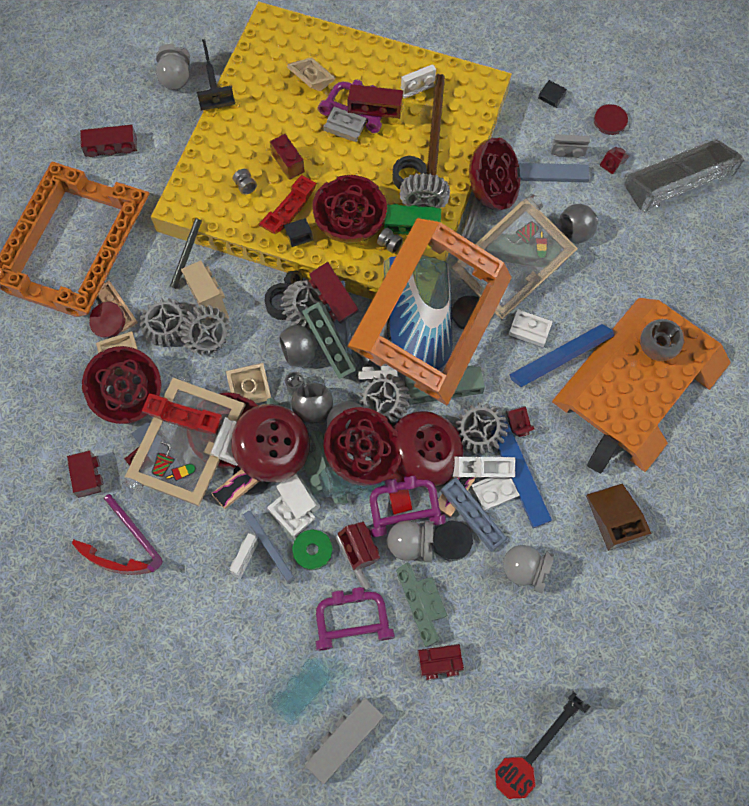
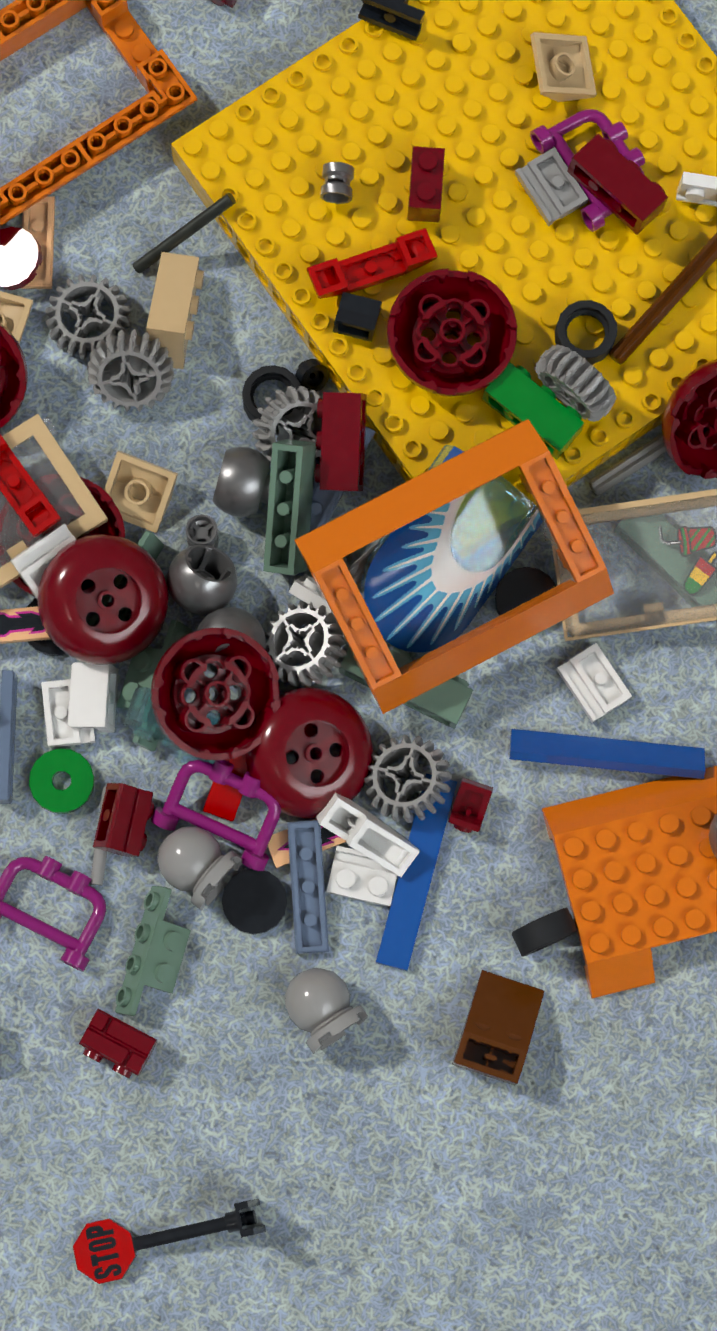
camera: 30 degrees right, 10 degrees up
(389, 240) = (477, 419): flat silver wheel -> none

